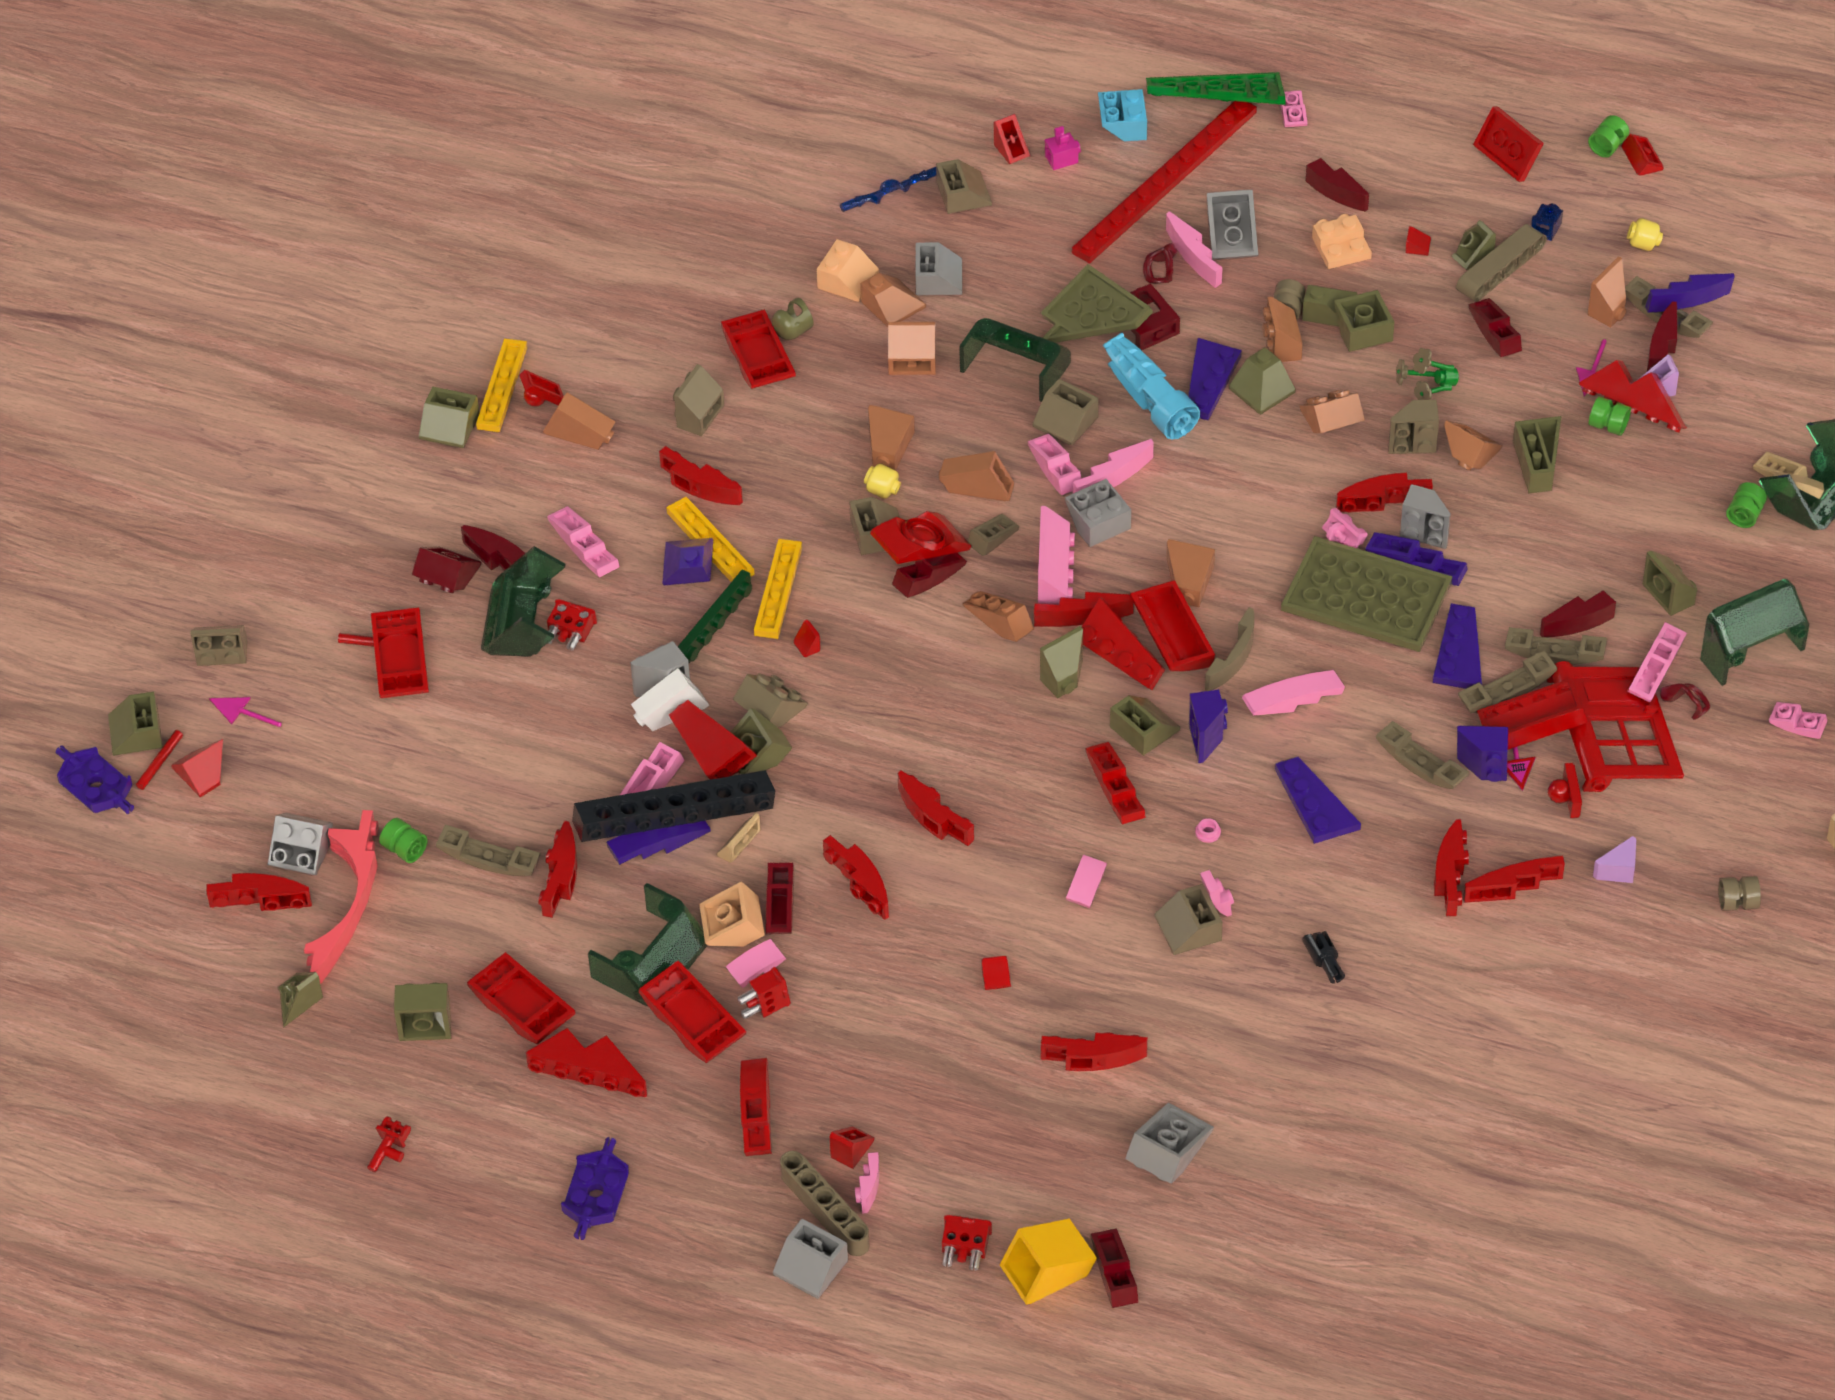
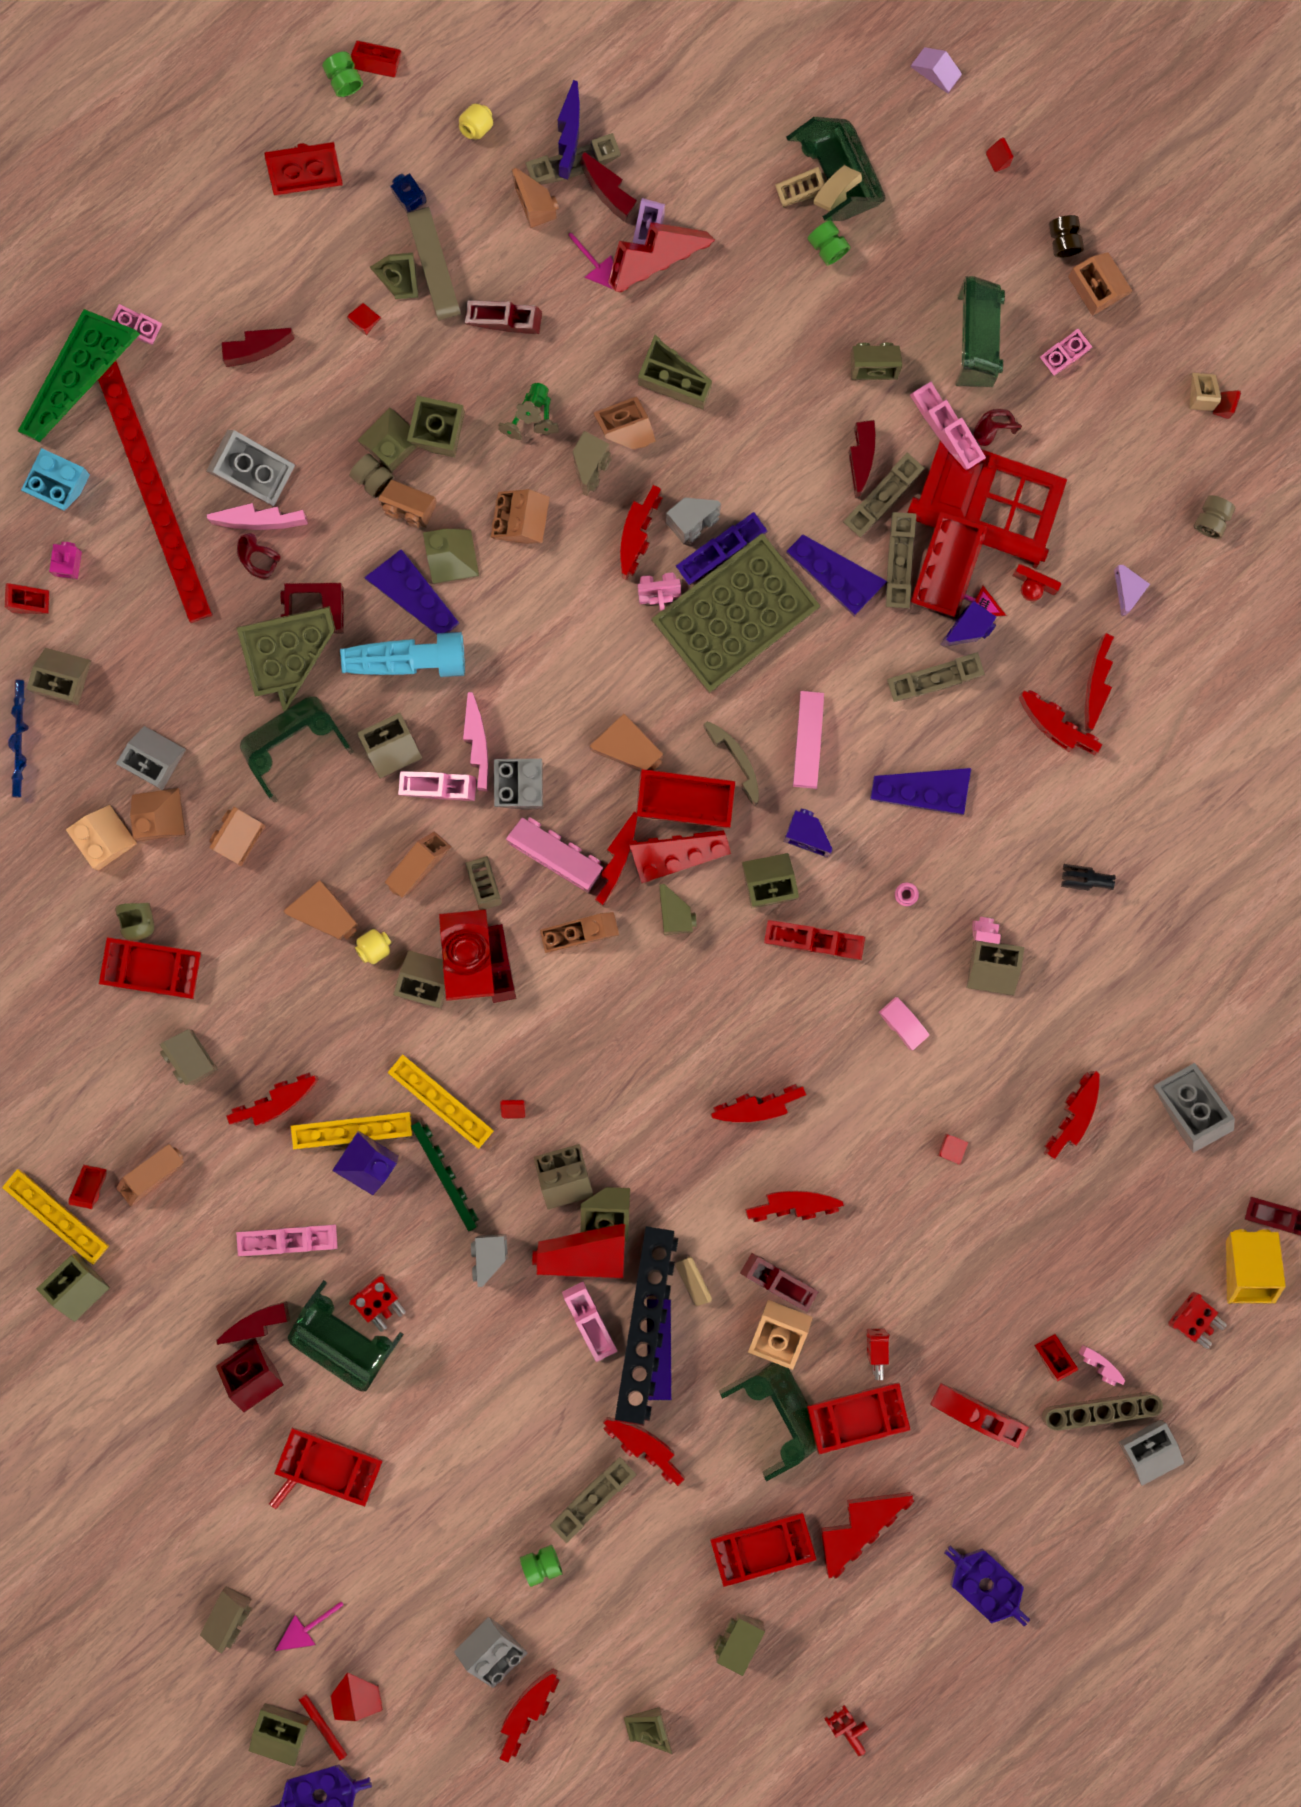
camera: 65 degrees left, 35 degrees up
(358, 851) = (527, 1609): coral slope -> none
(663, 698) = (519, 1264): white slope -> none
(755, 961) = (834, 1337): bright pink slope -> none
(1341, 241) = (323, 383): light nougat plate -> none
(1608, 415) = (665, 289): bright green wheel -> none

